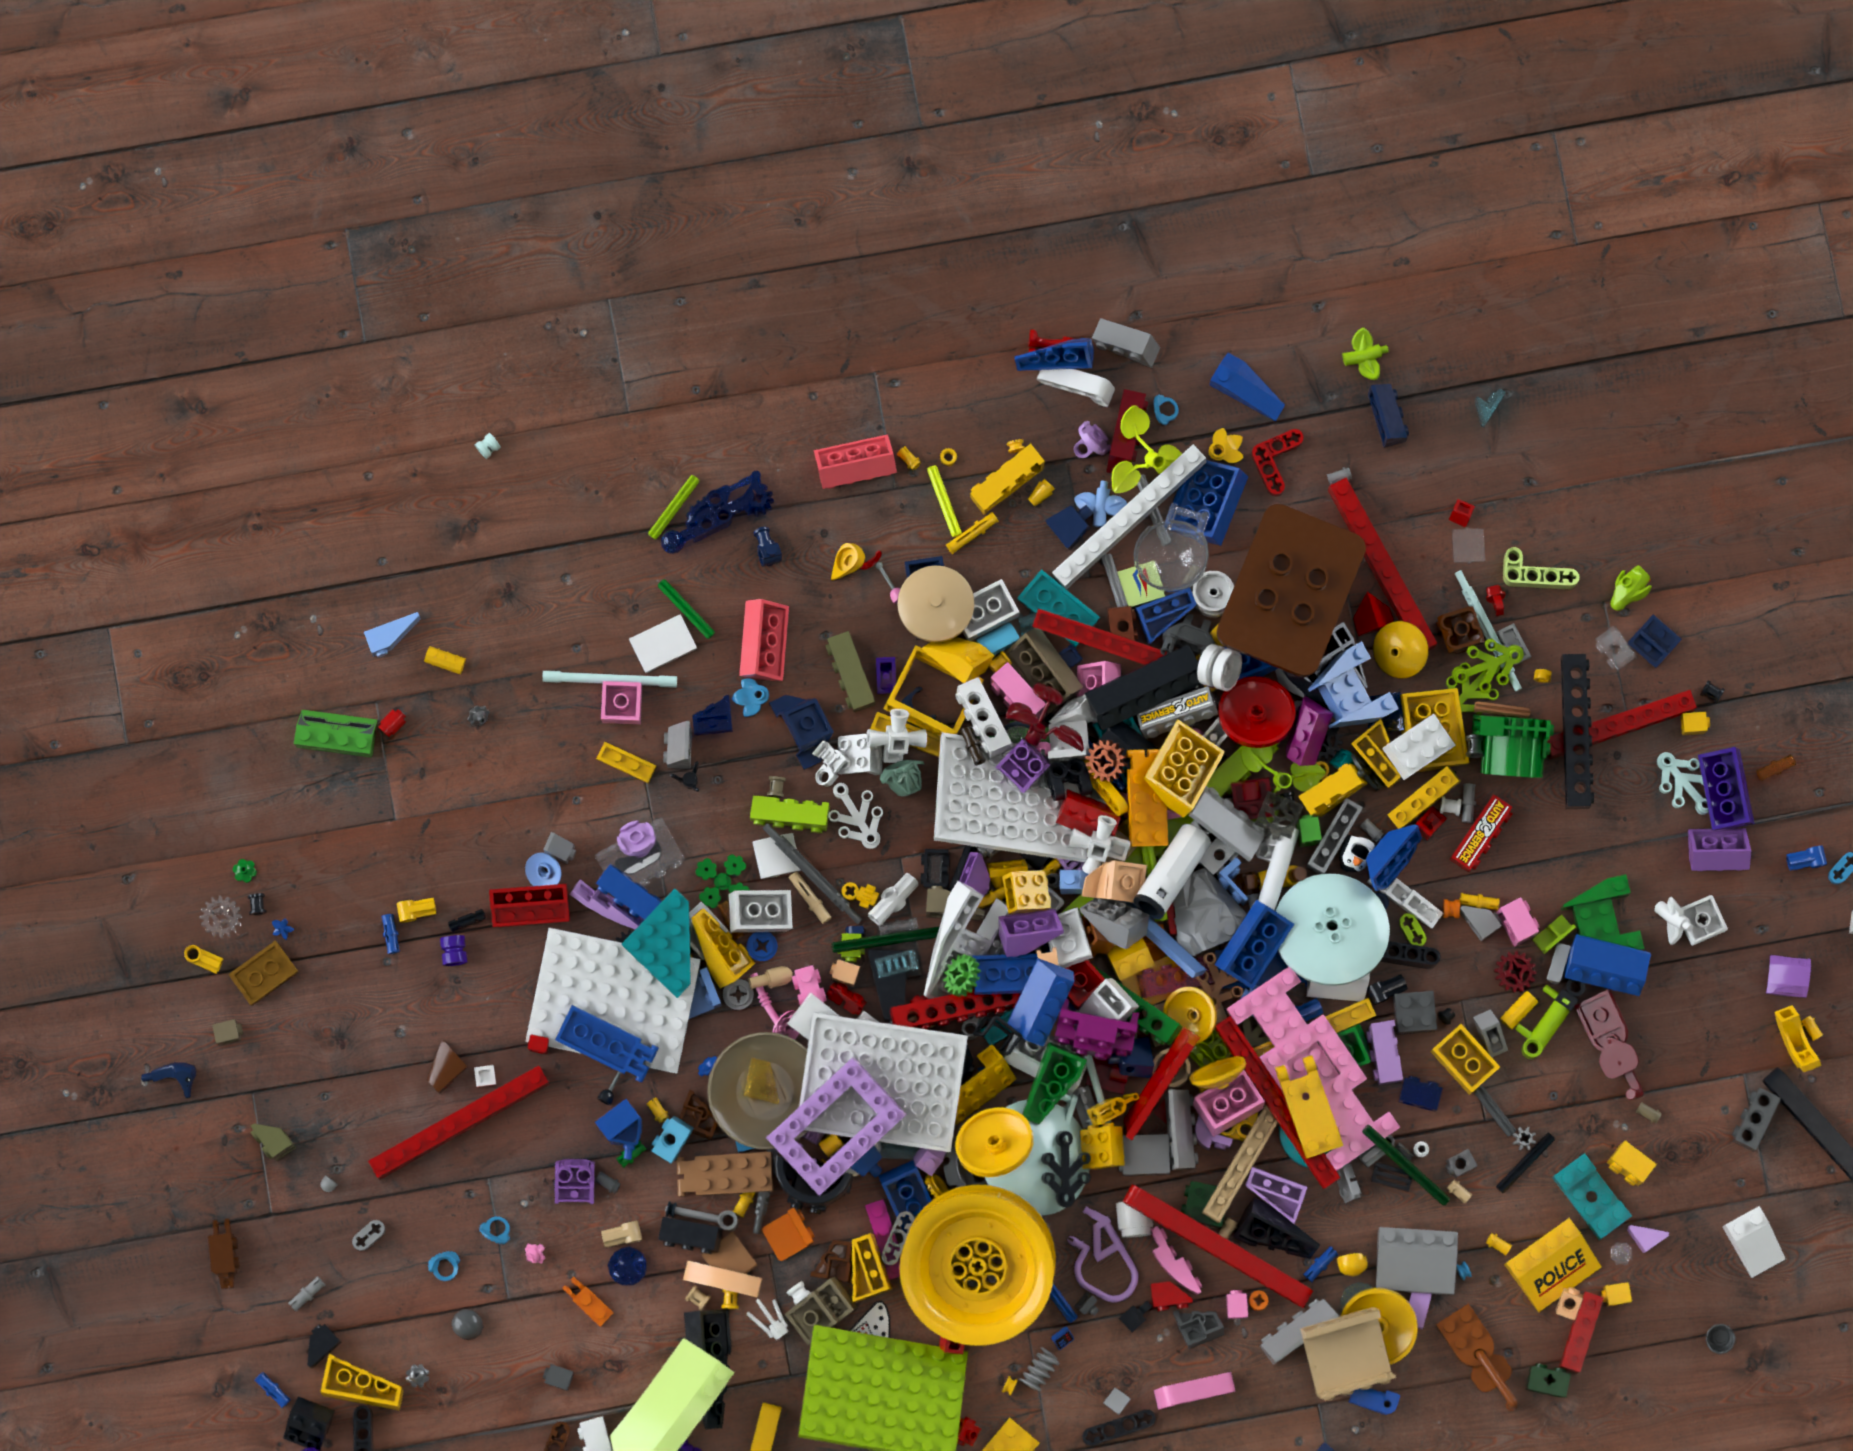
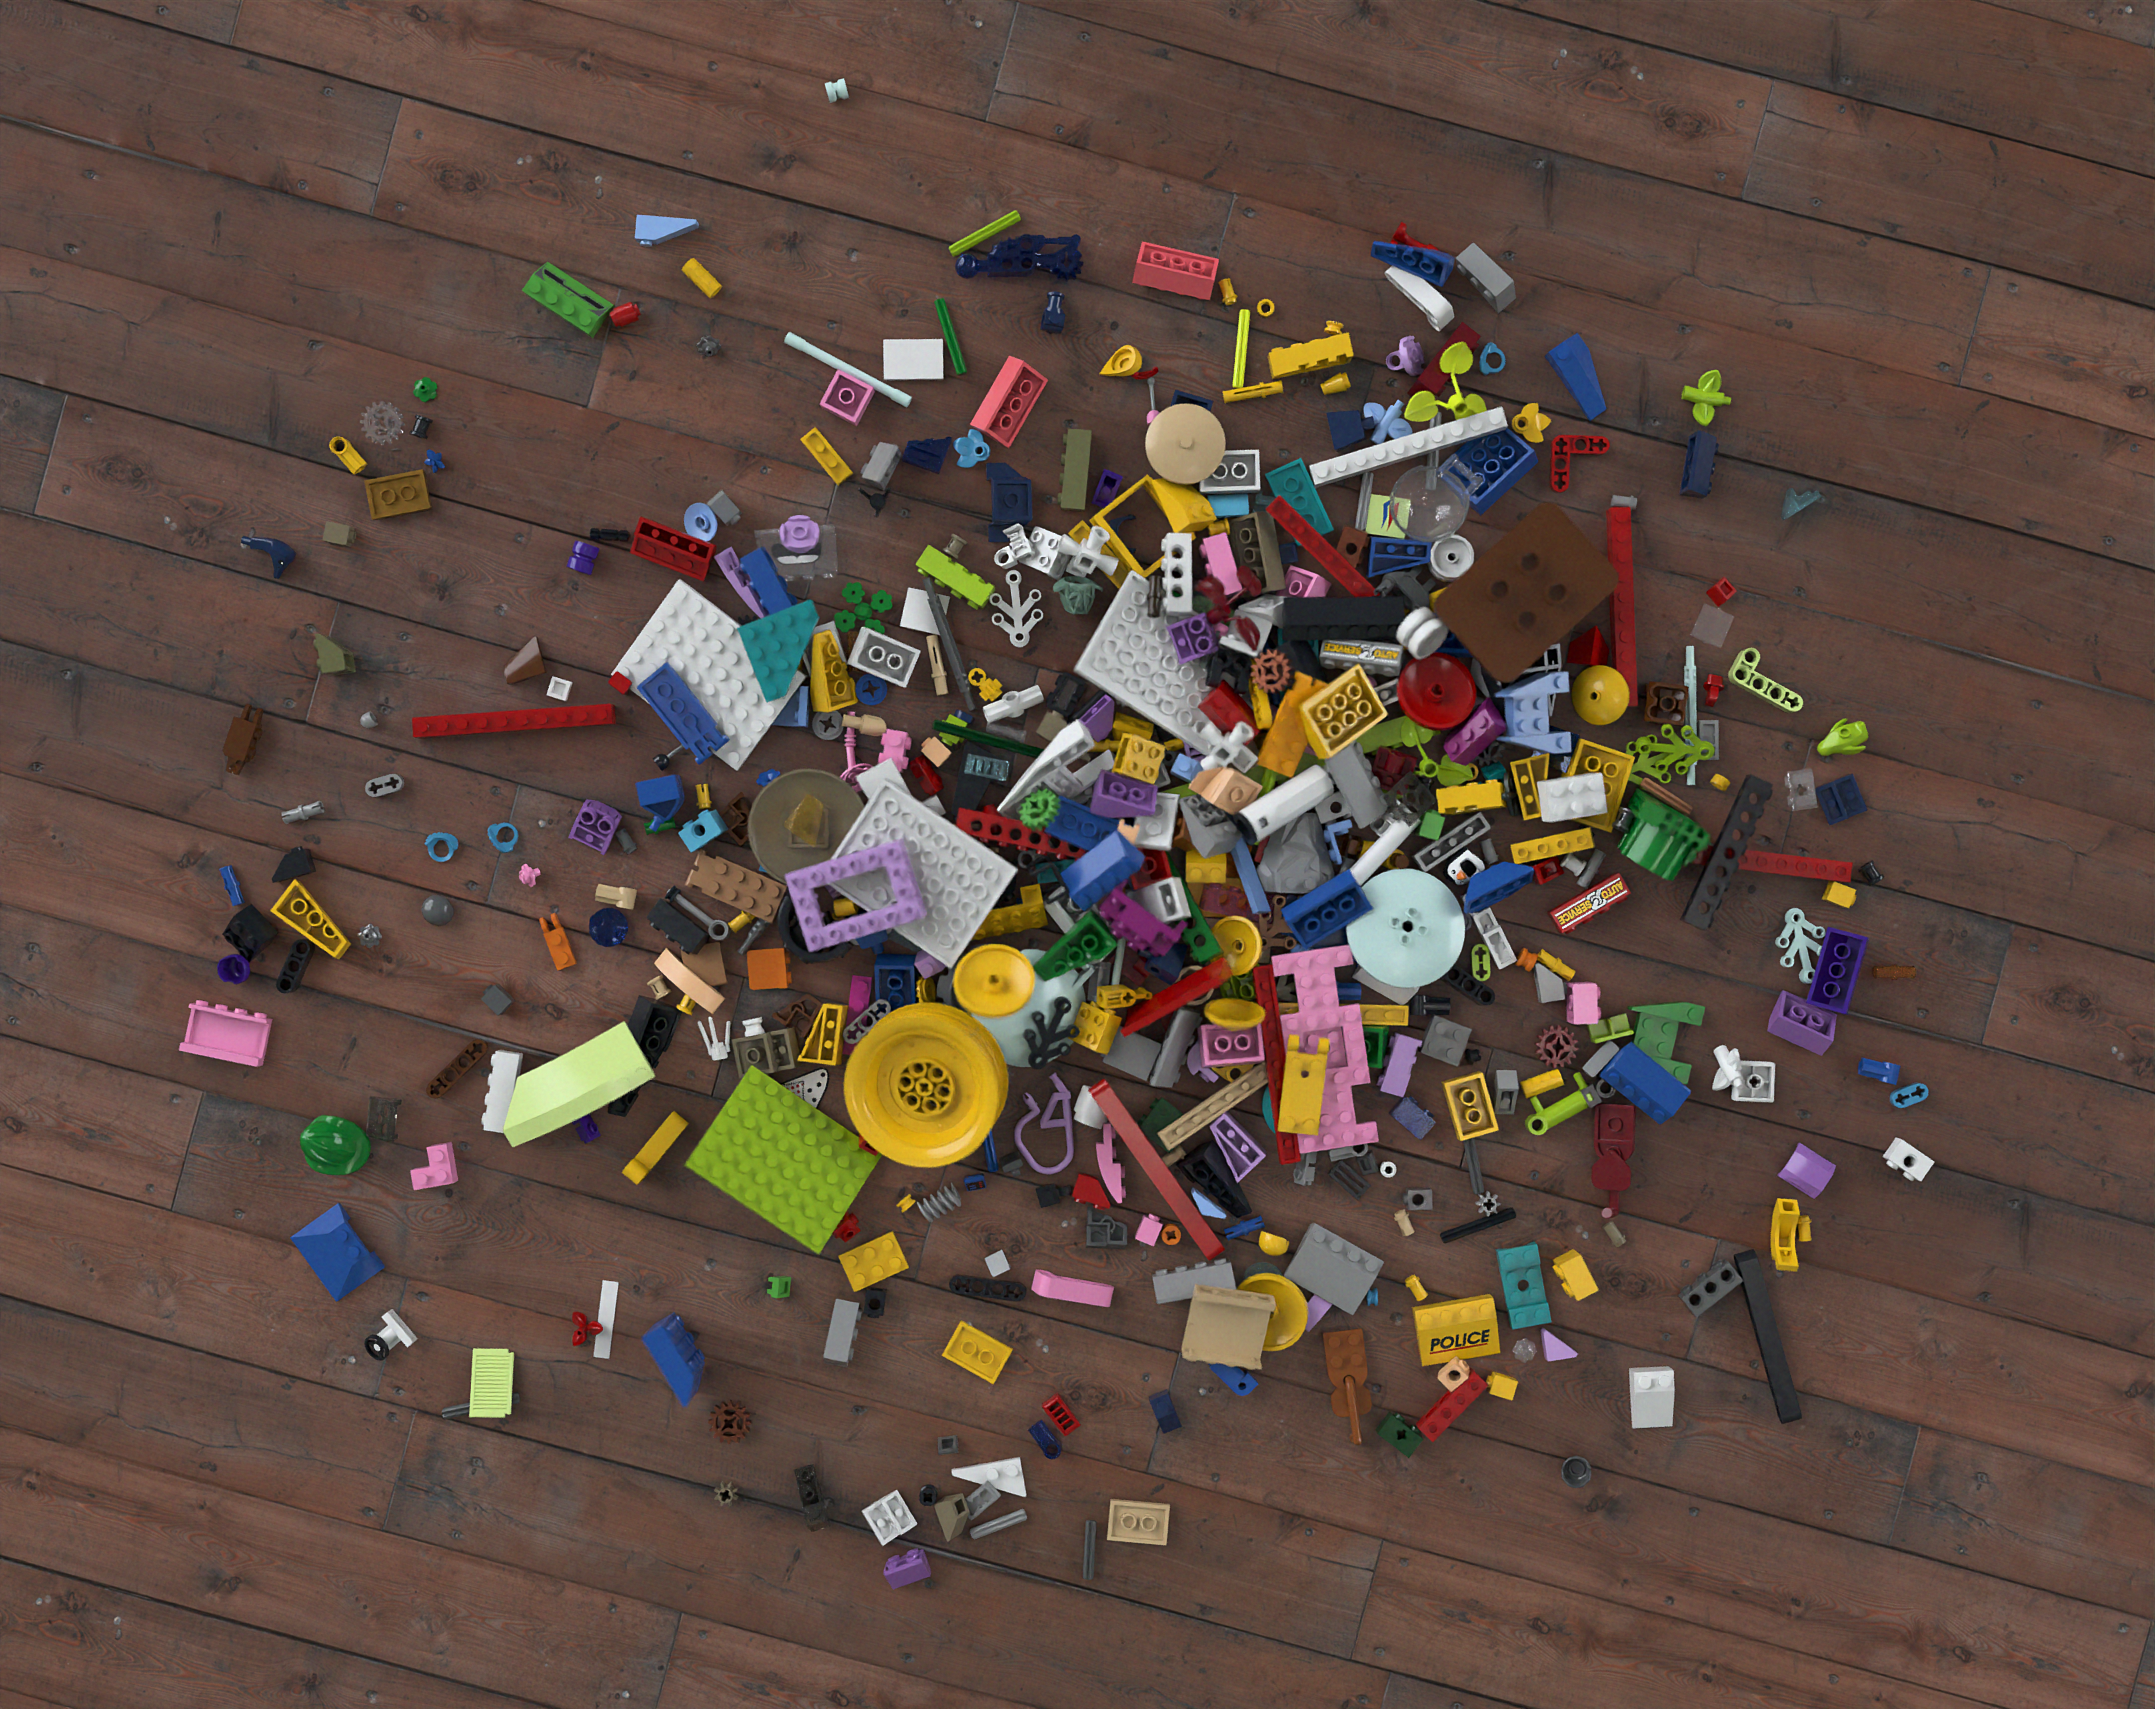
camera: 25 degrees right, 10 degrees up
(390, 934) = (532, 513): blue pin -> none
(411, 910) = (562, 501): yellow piece -> none
(1276, 1258) = (1207, 1206): none -> light blue slope
(1406, 1165) = (1366, 1177): dark green axle -> none

